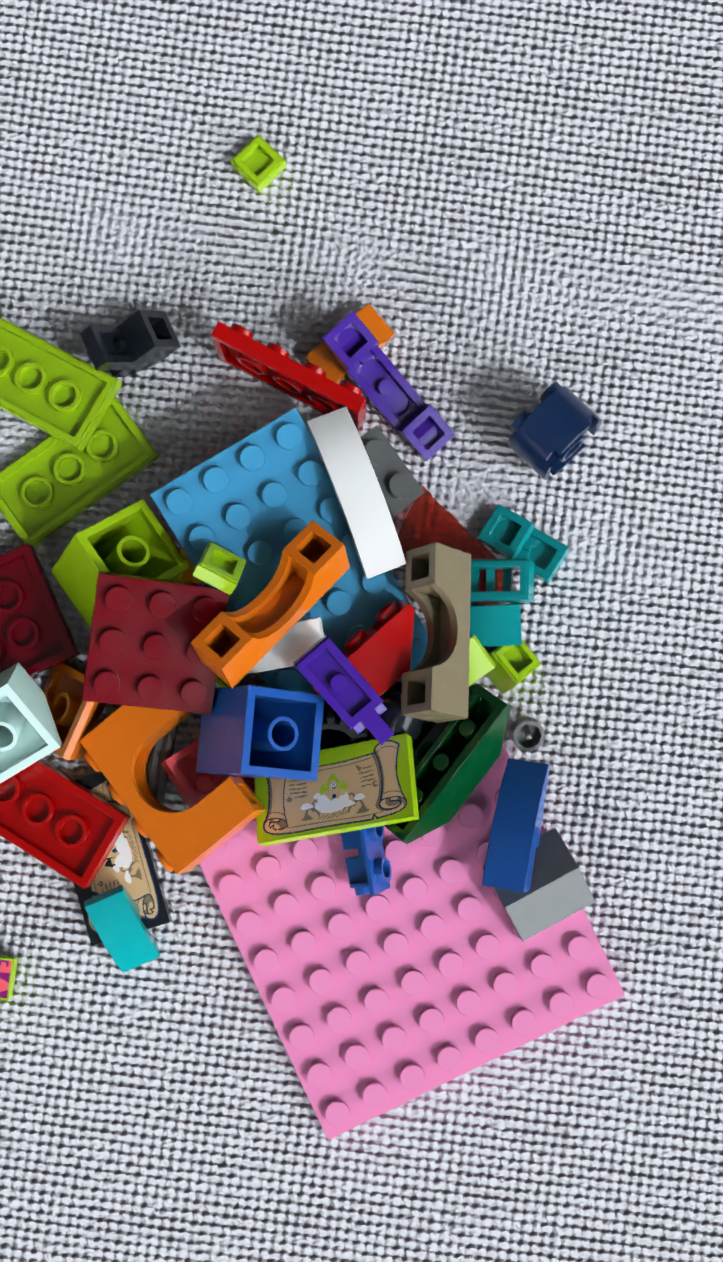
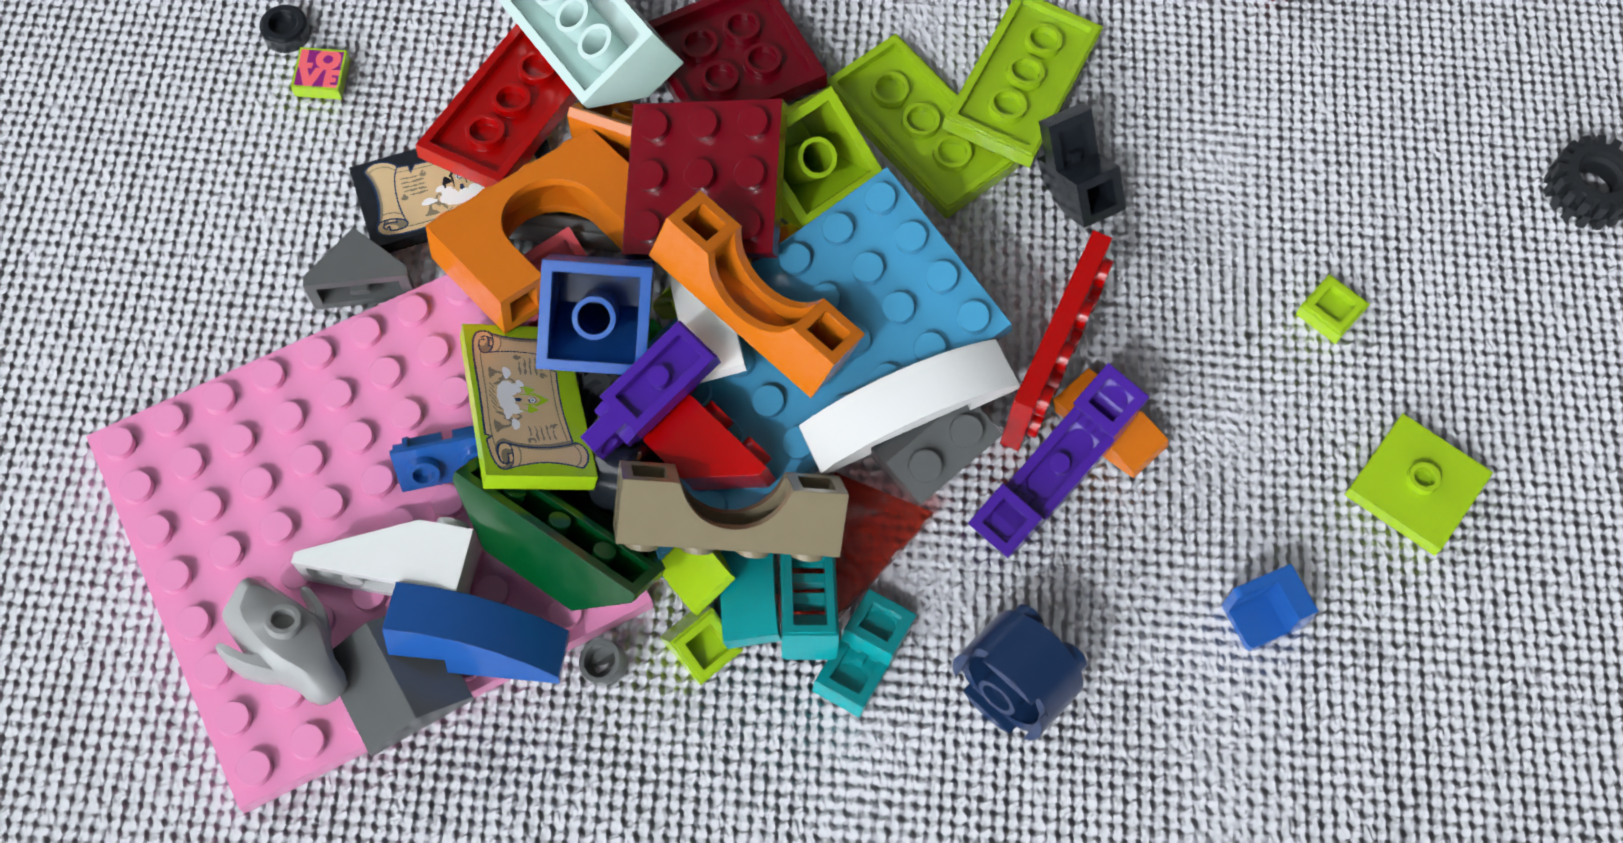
camera: 80 degrees right, 20 degrees down
(121, 928) = (369, 187): teal slope -> none
(194, 933) = (356, 274): none -> dark grey slope
(219, 568) = (799, 241): lime tile -> none
(408, 124) = (1419, 484): none -> lime plate
(456, 874) = (413, 552): none -> white slope
(502, 248) = (1269, 607): none -> blue panel
(517, 967) = (282, 641): none -> light grey animal

